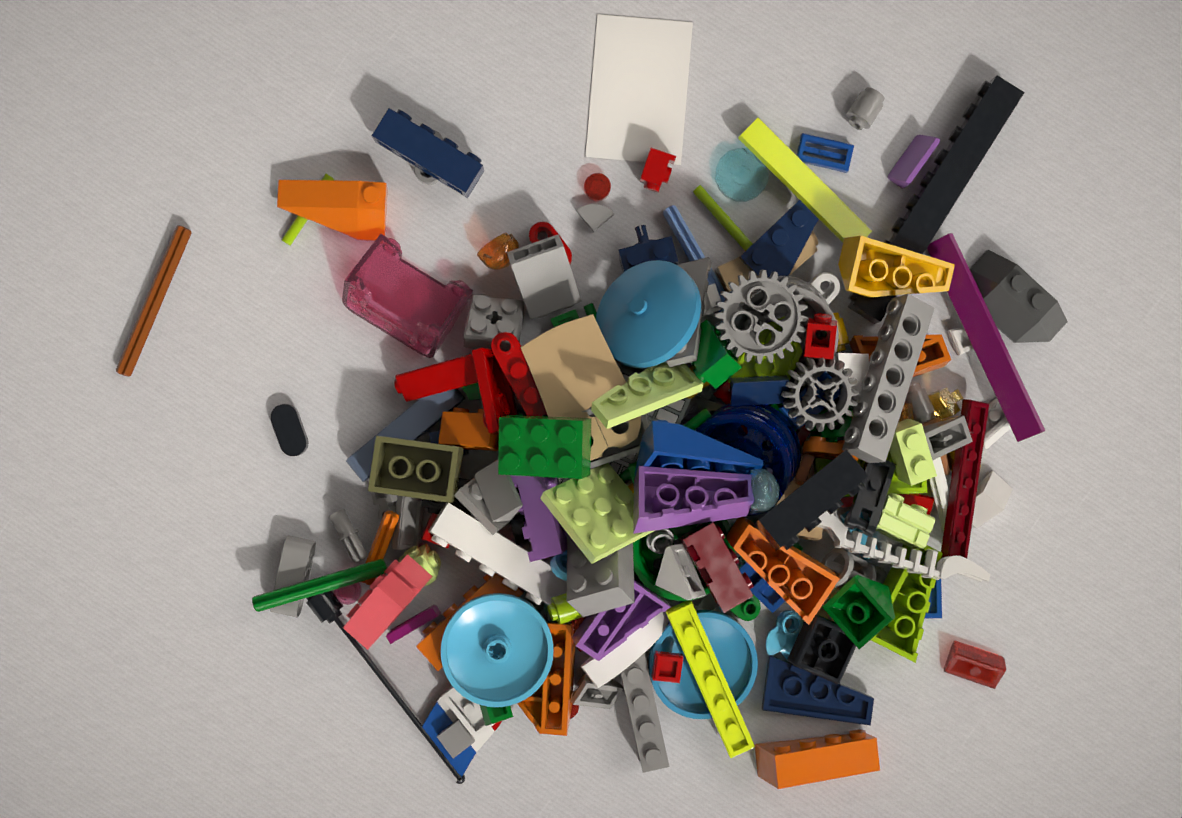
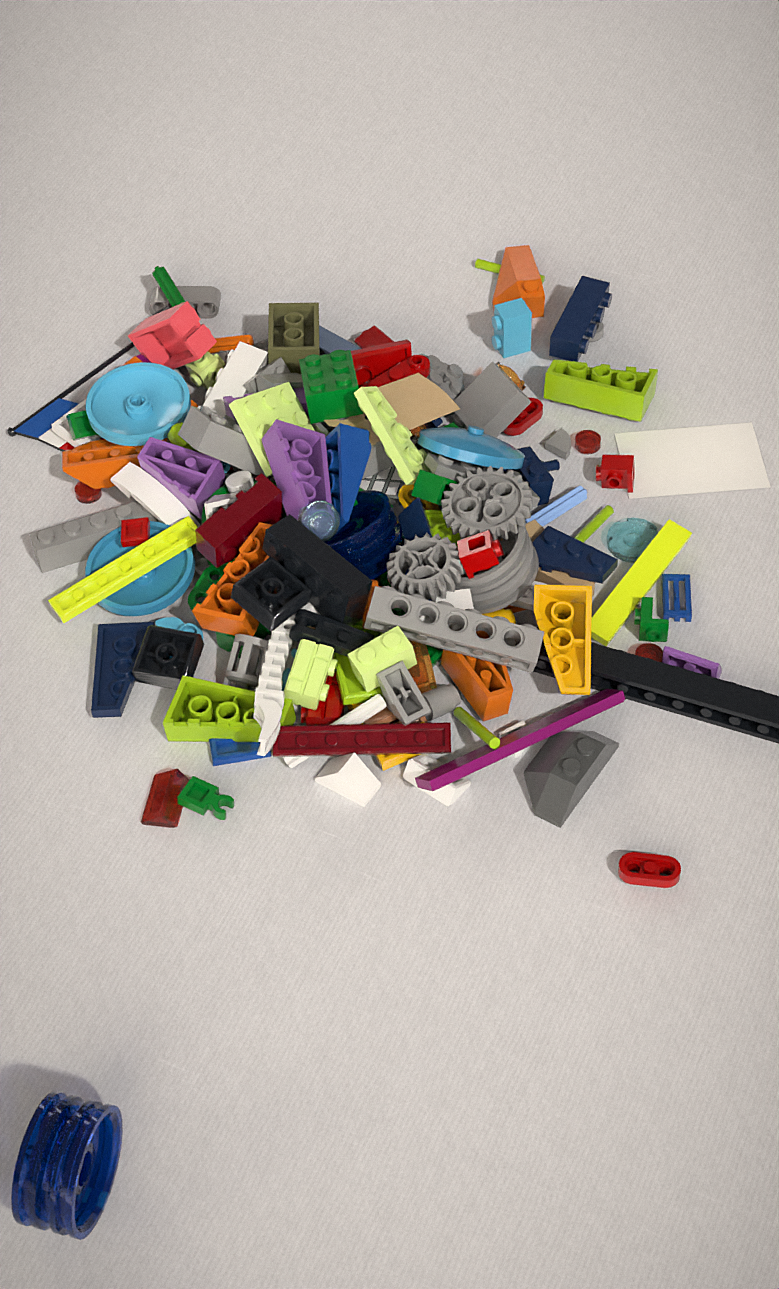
camera: 85 degrees right, 40 degrees down
(153, 301) = (406, 198): dark orange axle -> none
(289, 430) = (313, 286): black tile -> none
(348, 535) = (231, 327): light grey axle -> none
(403, 298) = (453, 323): clear pink windscreen -> none
(426, 229) = (512, 328): none -> medium azure brick
(455, 738) = (48, 416): light grey tile -> none
(536, 151) = (601, 388): none -> lime wedge
(589, 695) = (104, 493): light grey slope -> none
(645, 557) = (239, 481): none -> white tile
(816, 758) = (53, 669): orange wedge -> none
(848, 555) = (271, 593): none -> black brick
(853, 190) = (650, 629): none -> green bracket
(861, 609) = (217, 665): green slope -> none
(865, 108) = (731, 615): light grey brick -> none
(894, 197) = (650, 651): none -> clear red tile
(945, 402) = (448, 715): clear yellow tile -> none
(965, 375) = (476, 727): none -> lime bar
(985, 633) = (203, 796): none -> green plate
(1135, 259) = (649, 869): none -> red plate

